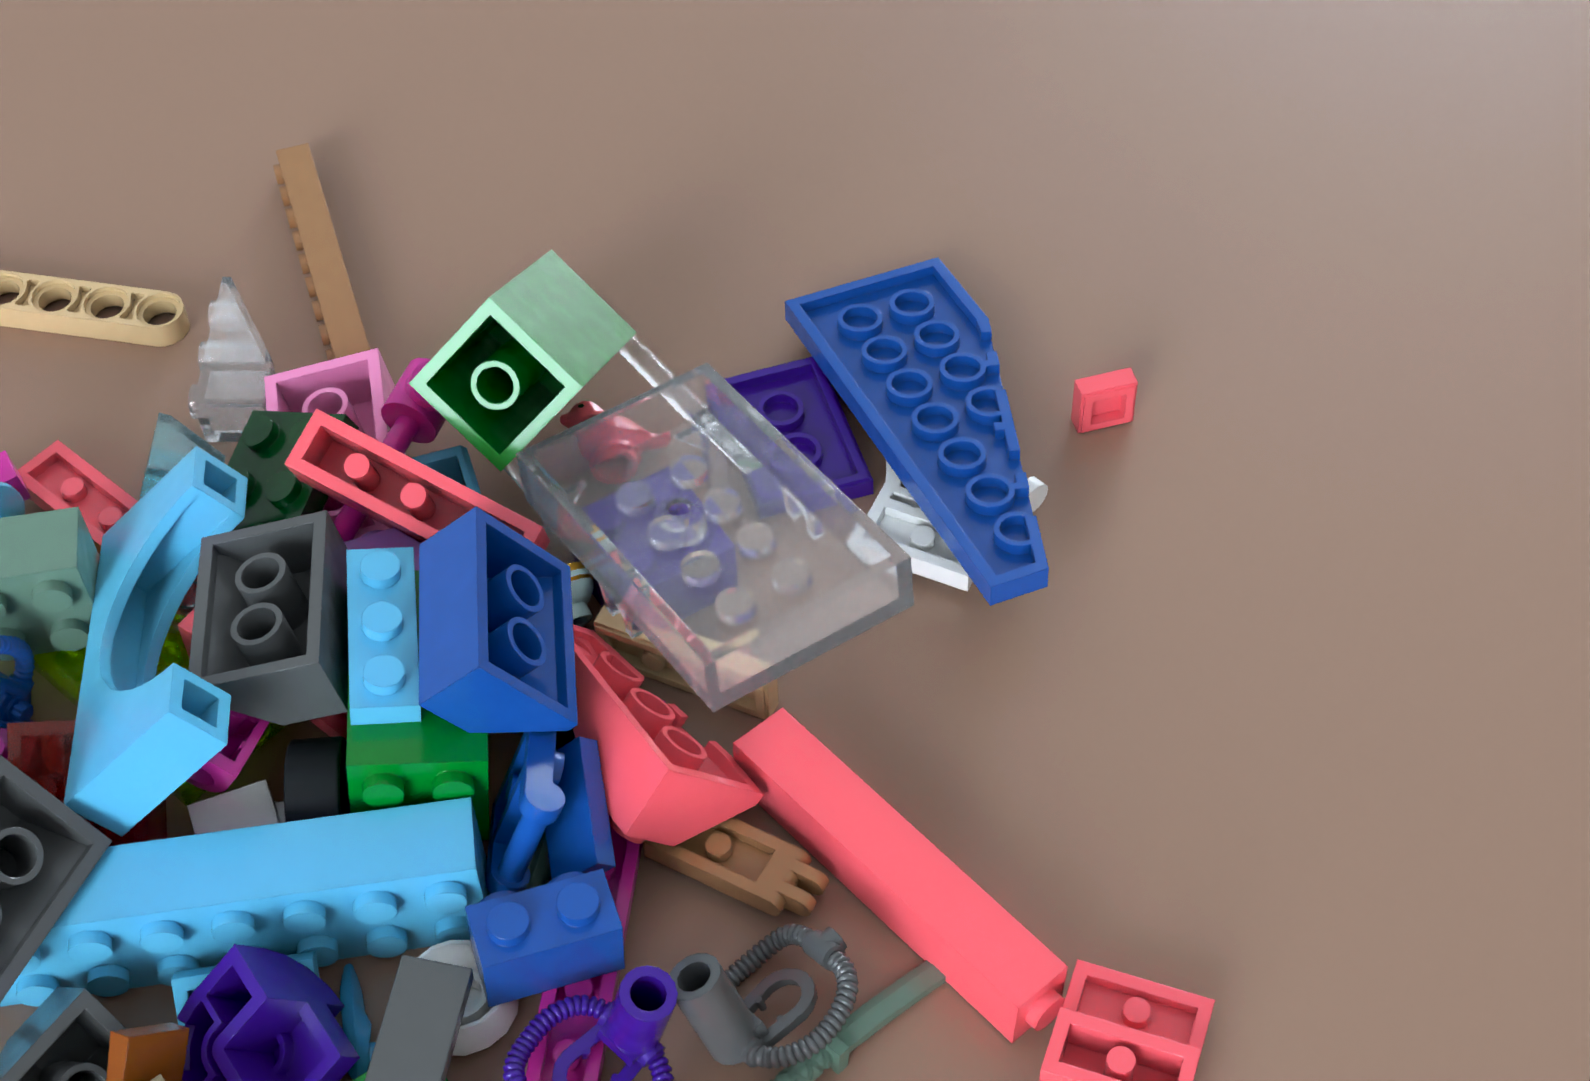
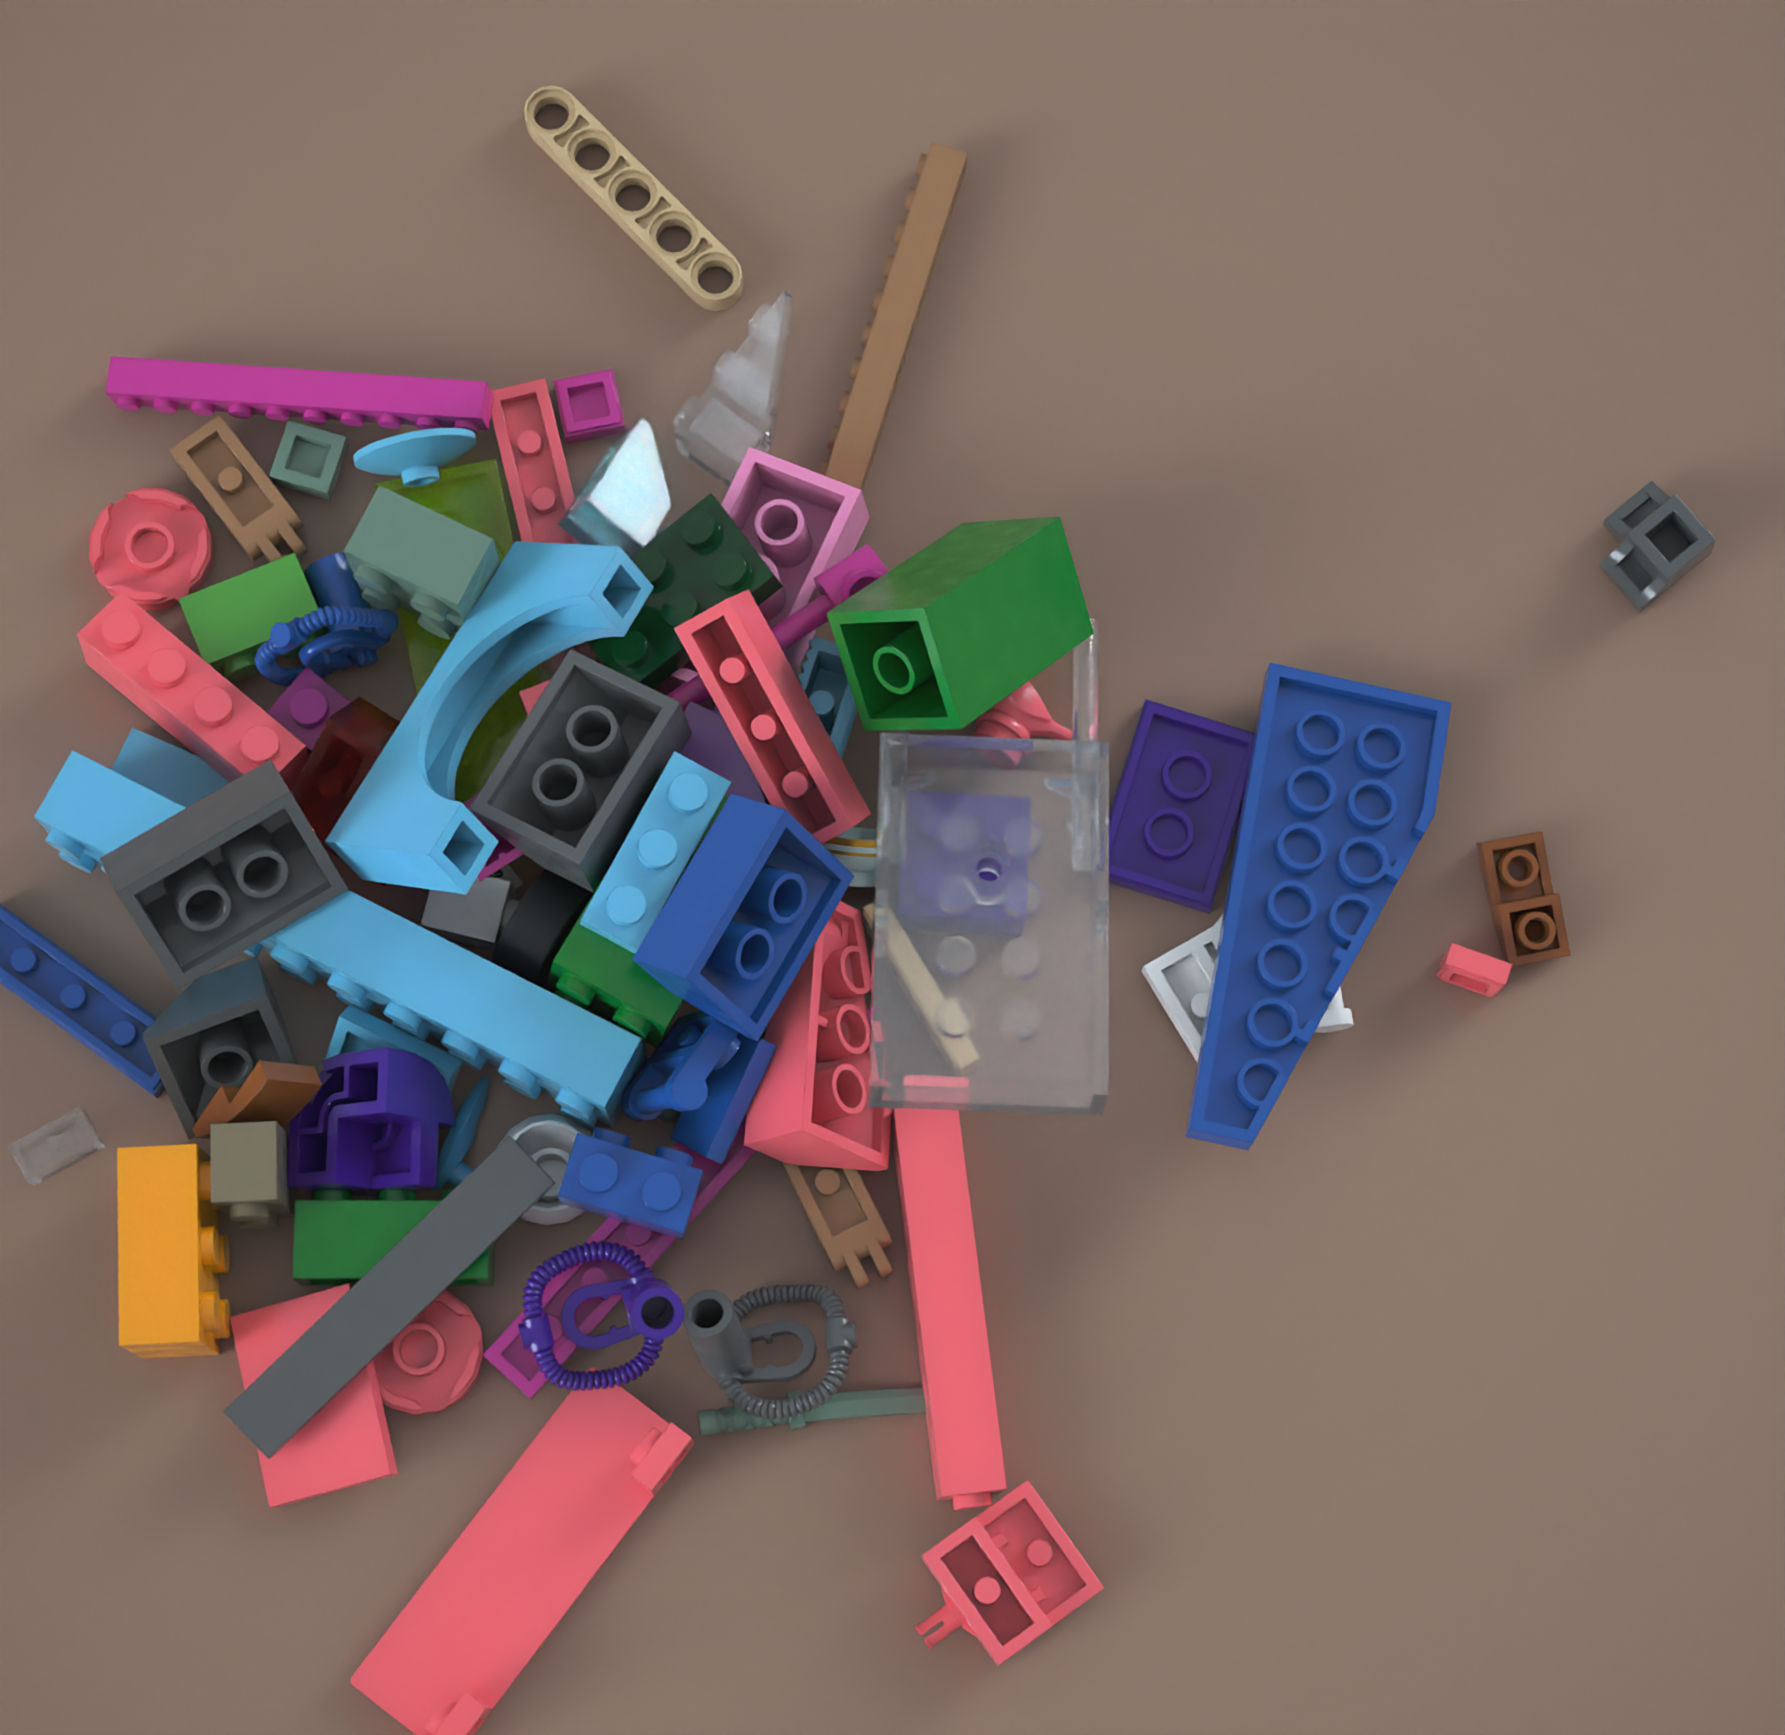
camera: 30 degrees right, 25 degrees up
(111, 446) = (589, 406): none -> dark pink tile
(996, 97) = (1656, 547): none -> dark grey brick
(1091, 345) = (1522, 899): none -> dark orange slope

